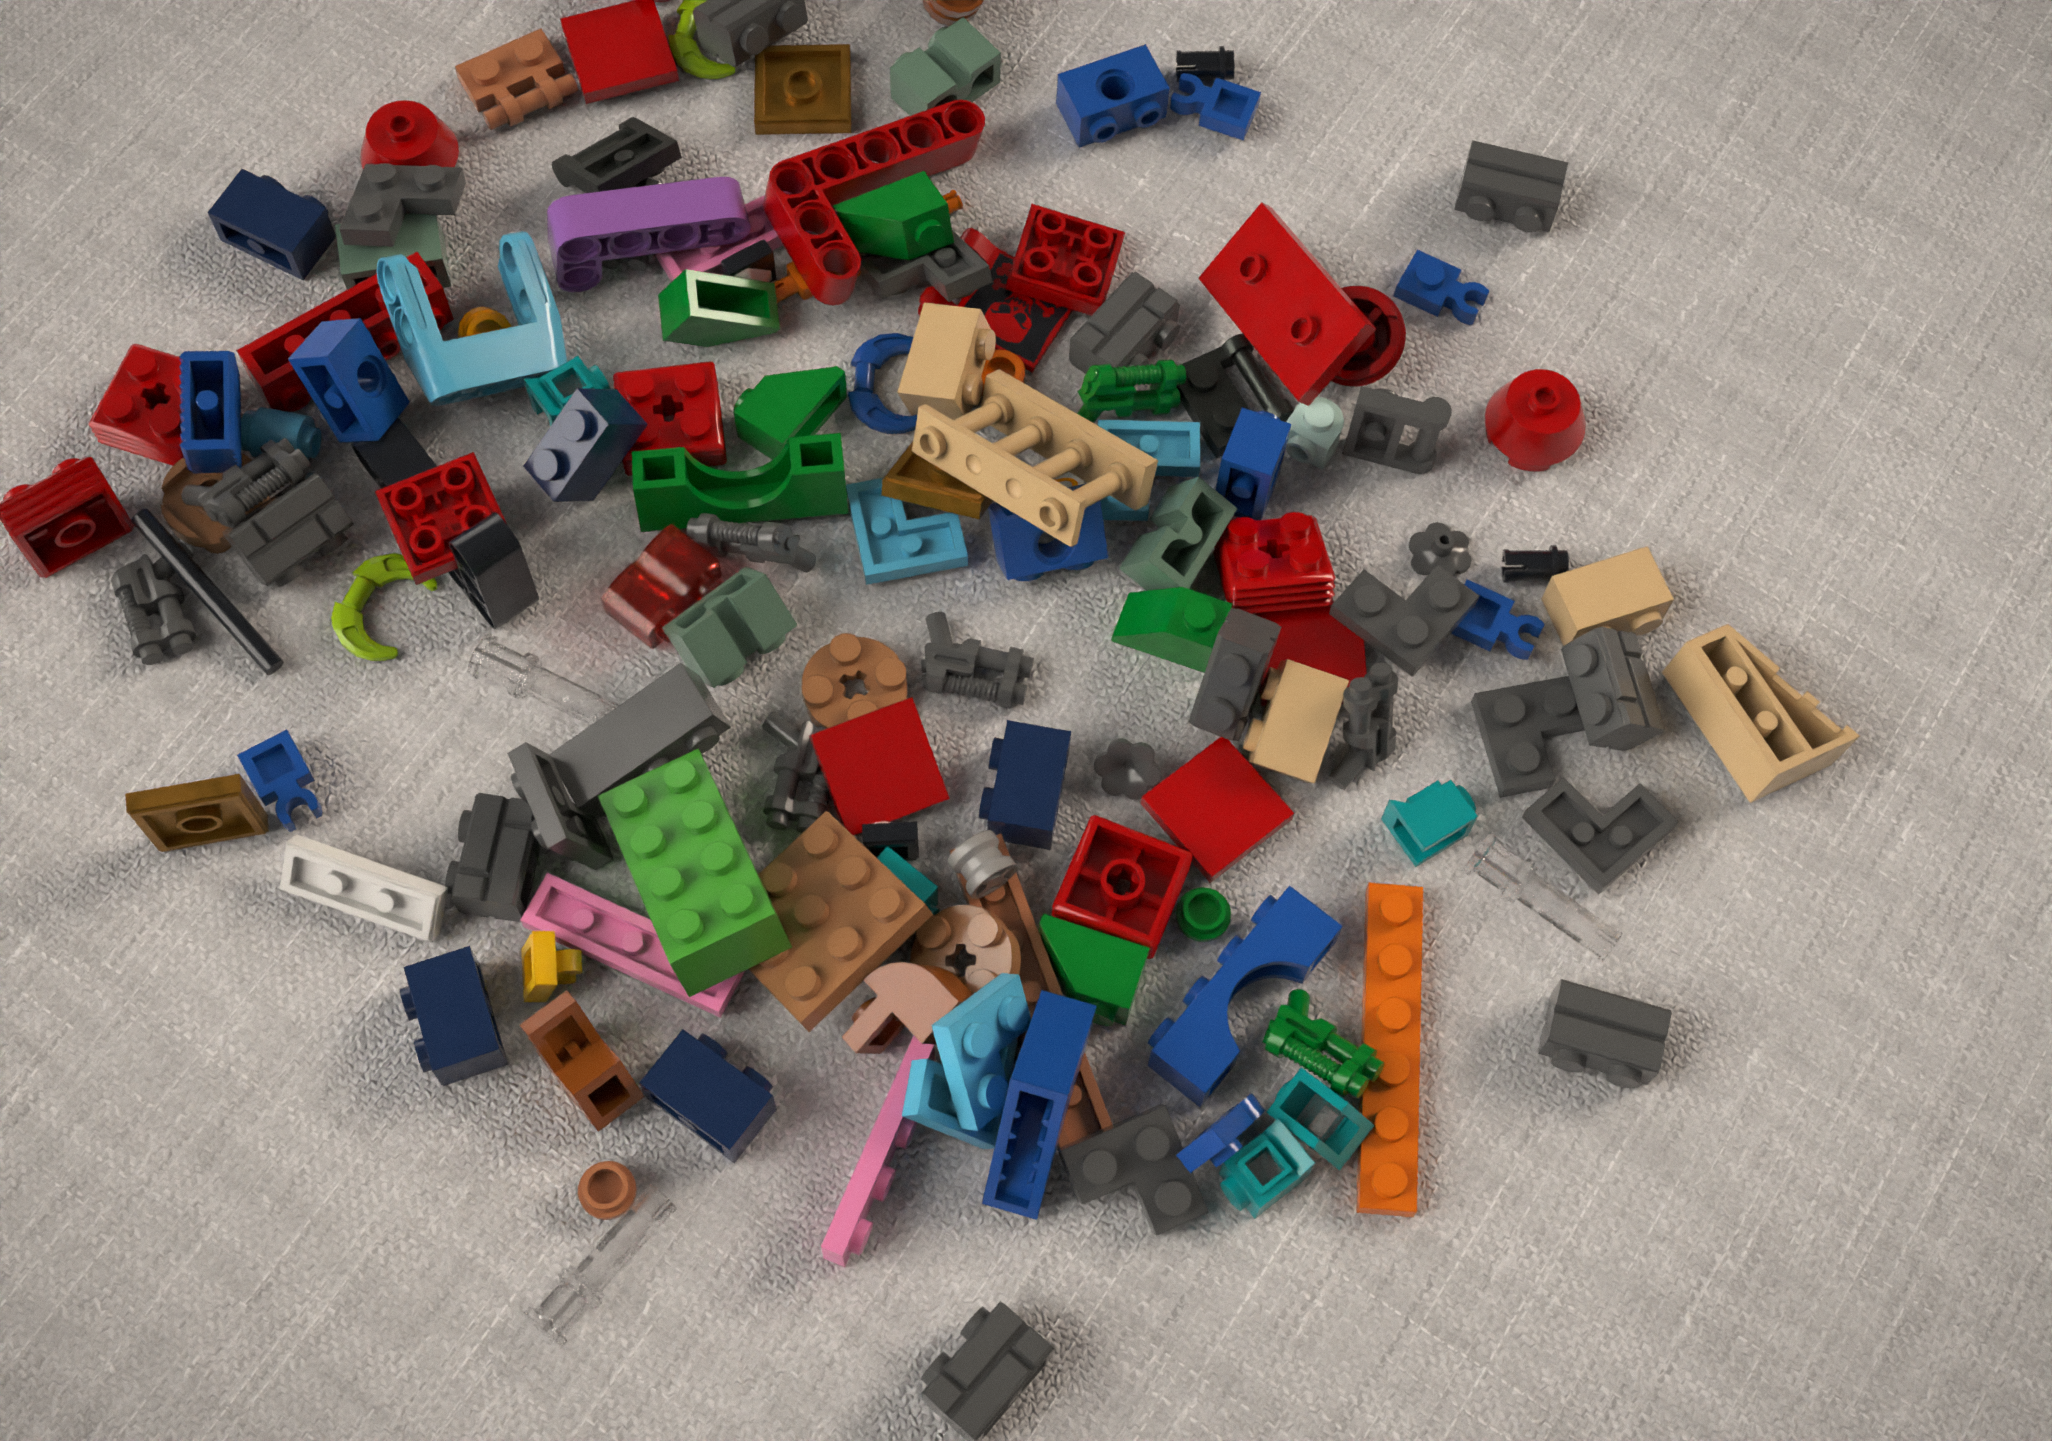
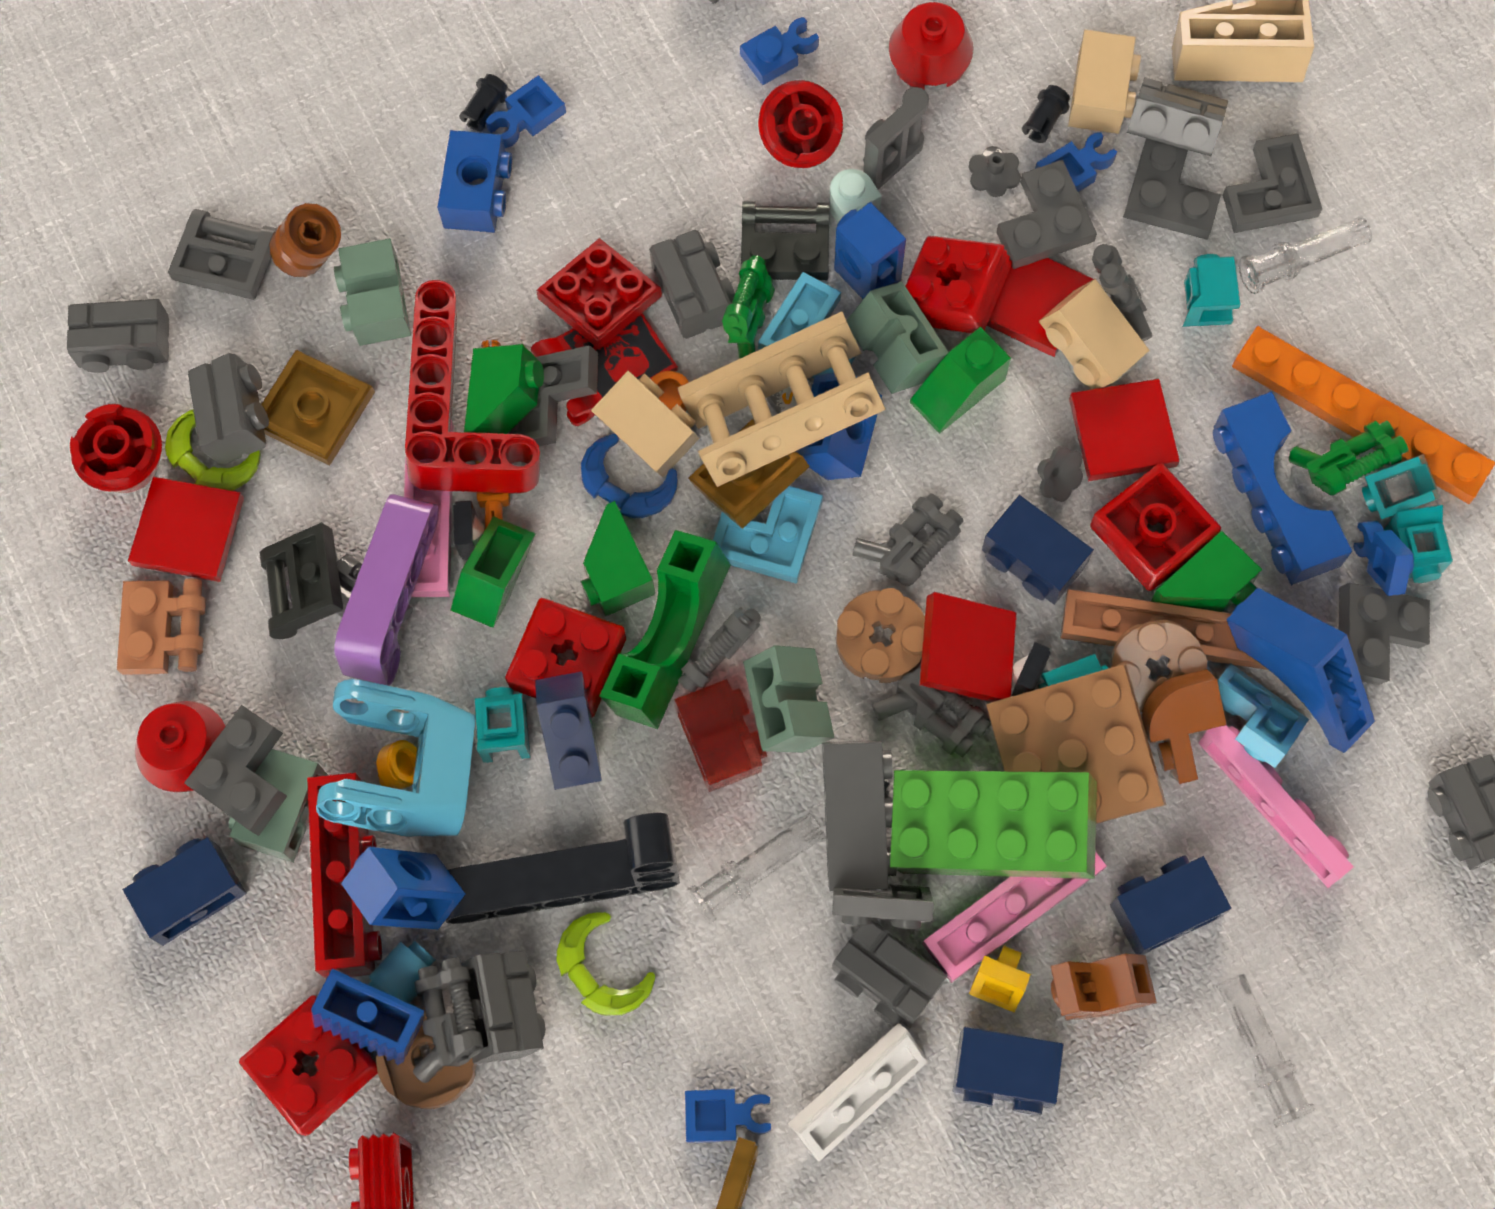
camera: 55 degrees left, 5 degrees up
(145, 590) = (479, 1153): dark grey piece -> none
(207, 591) = (515, 1102): black bar -> none
(435, 509) = (571, 872): red tile -> none
(607, 1190) = (1203, 1020): nougat plate -> none
(971, 1044) = (1247, 686): medium azure plate -> none
(982, 864) = (1097, 612): light grey wheel -> none
(1203, 914) = (1202, 482): green plate -> none
(1234, 674) = (1038, 355): dark grey brick -> none
(1286, 304) = (749, 154): red plate -> none
(1604, 1034) = (1427, 269): dark grey brick -> none

